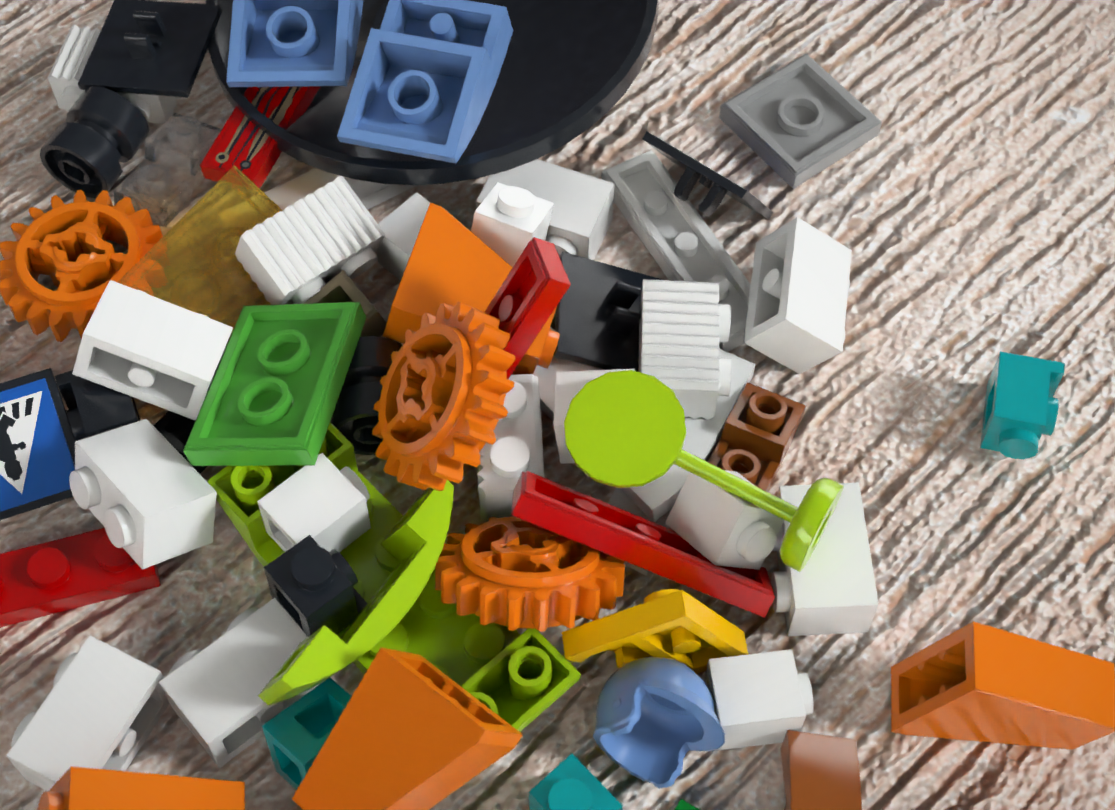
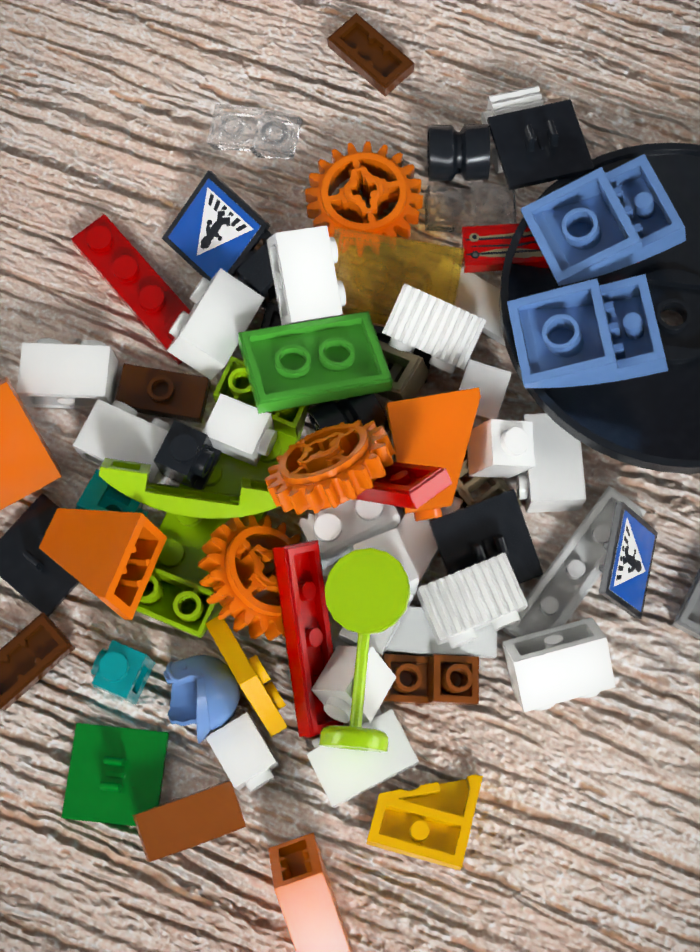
camera: 70 degrees right, 15 degrees up
(192, 610) = (164, 392): none -> reddish brown plate
(931, 520) = (427, 821): none -> yellow wing
(1020, 404) = (545, 854): teal brick -> none

